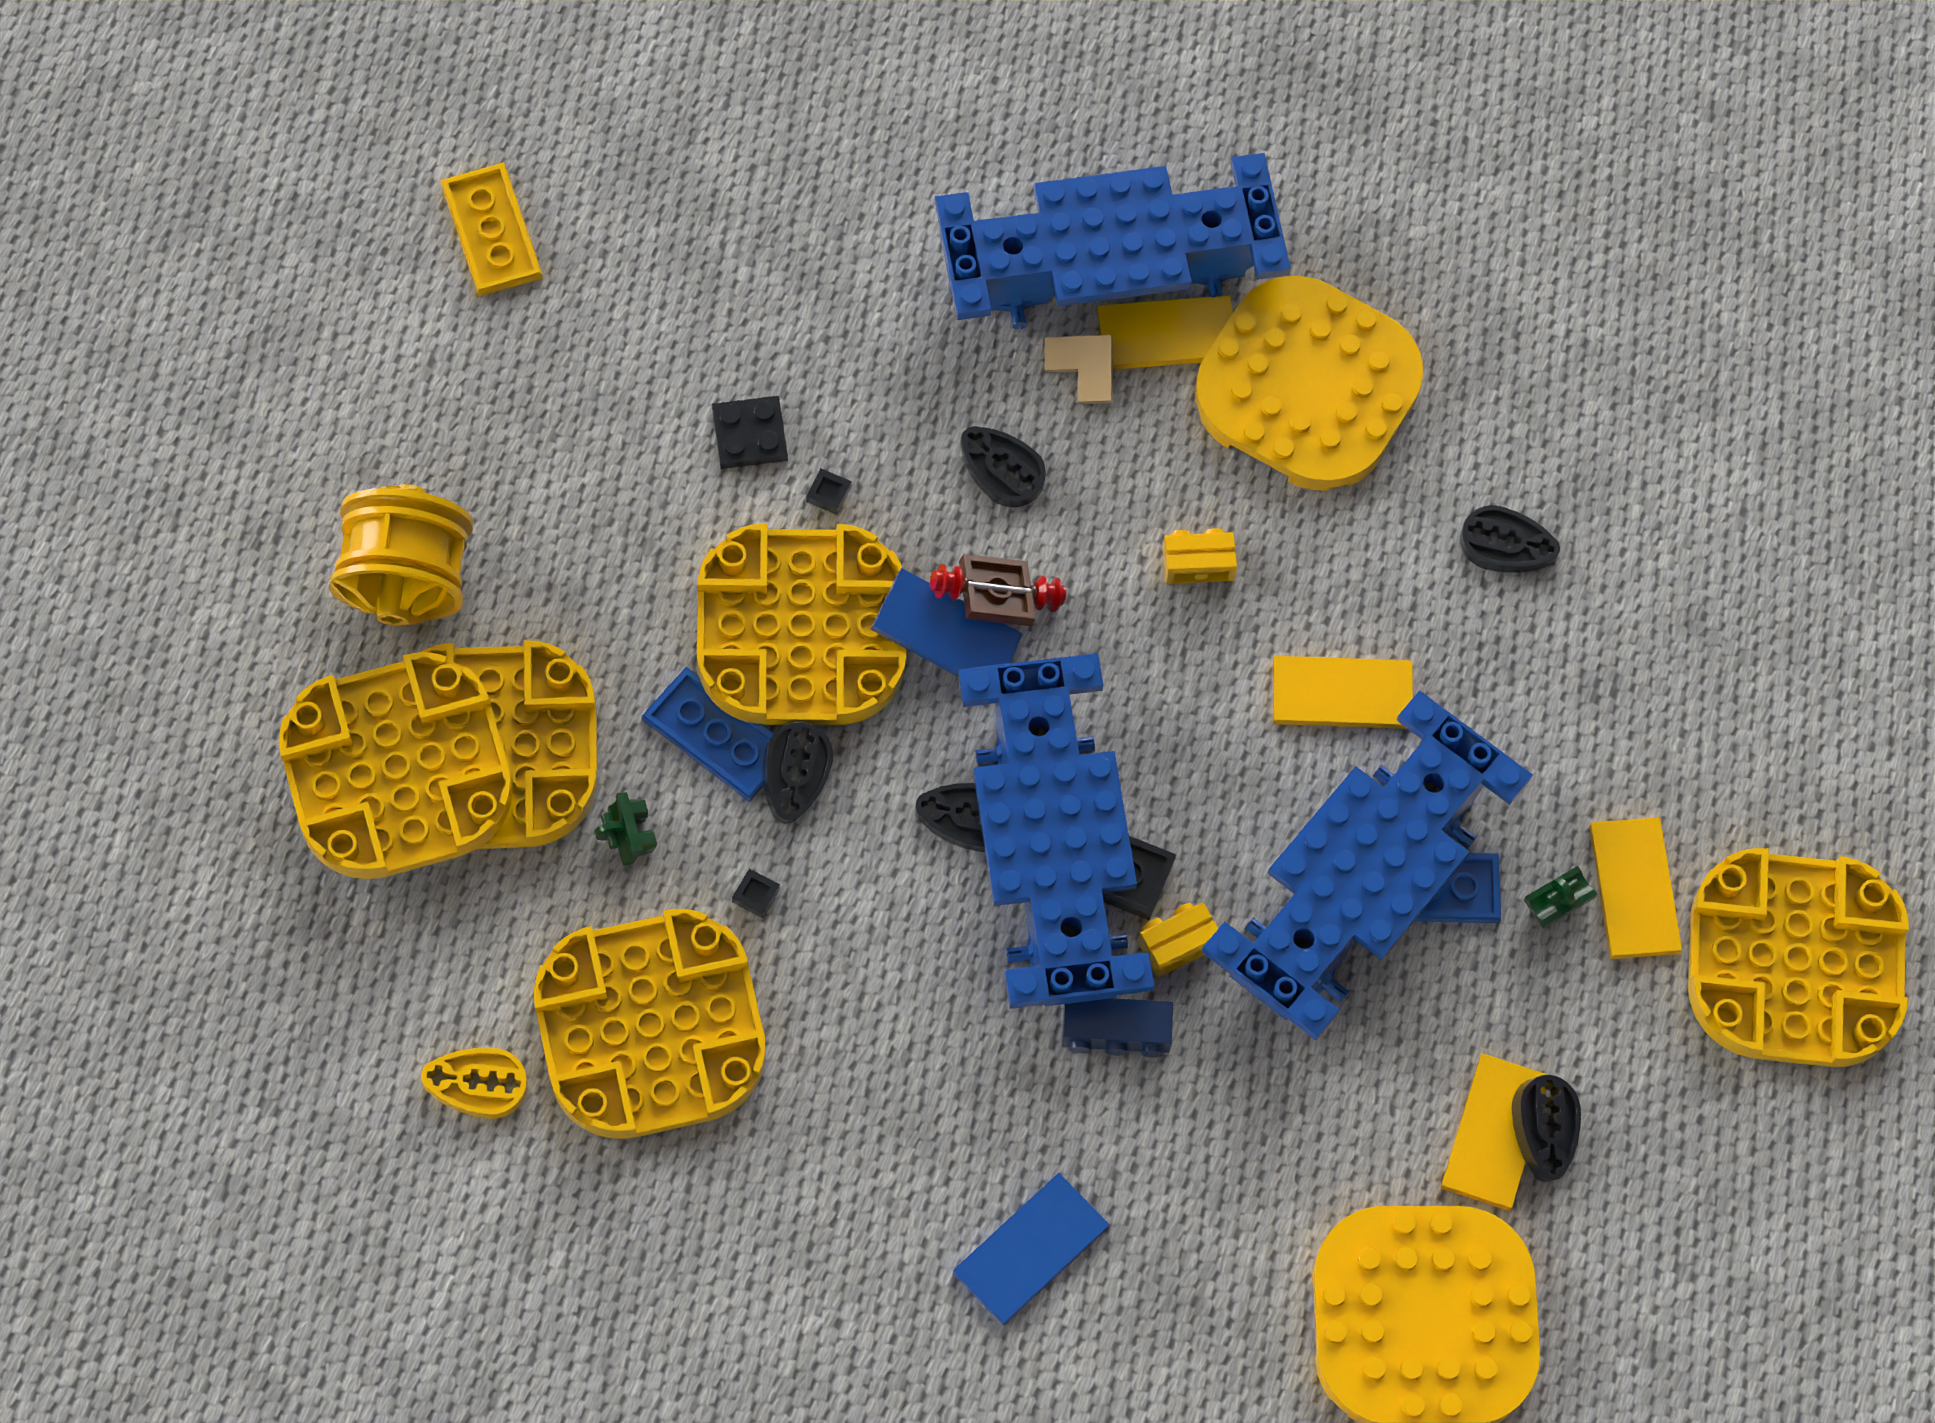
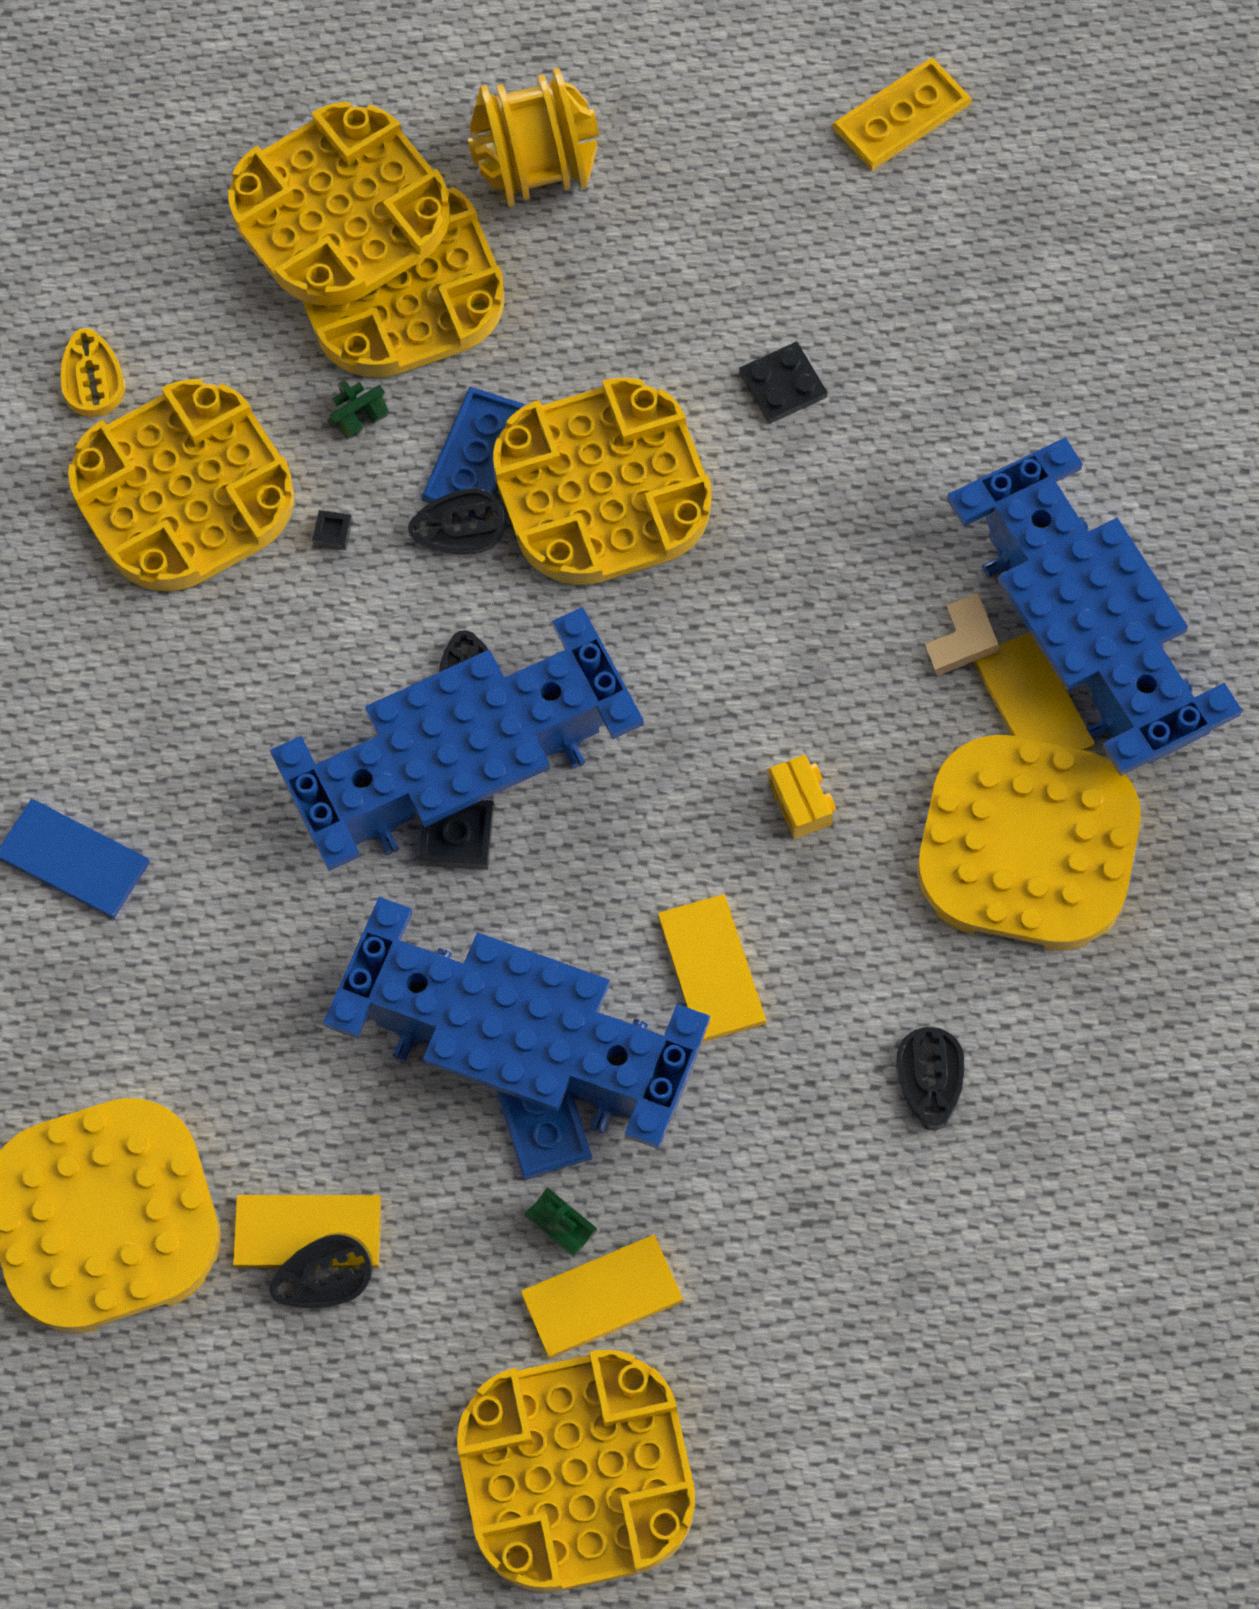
camera: 80 degrees right, 0 degrees up
(828, 491) = (746, 463): black plate -> none
(939, 627) = (638, 599): blue tile -> none
(994, 481) = (814, 598): black piece -> none
(997, 589) = (692, 627): reddish brown plate -> none
(1118, 1026) = (301, 867): dark blue brick -> none
(1177, 939) = (399, 882): yellow brick -> none

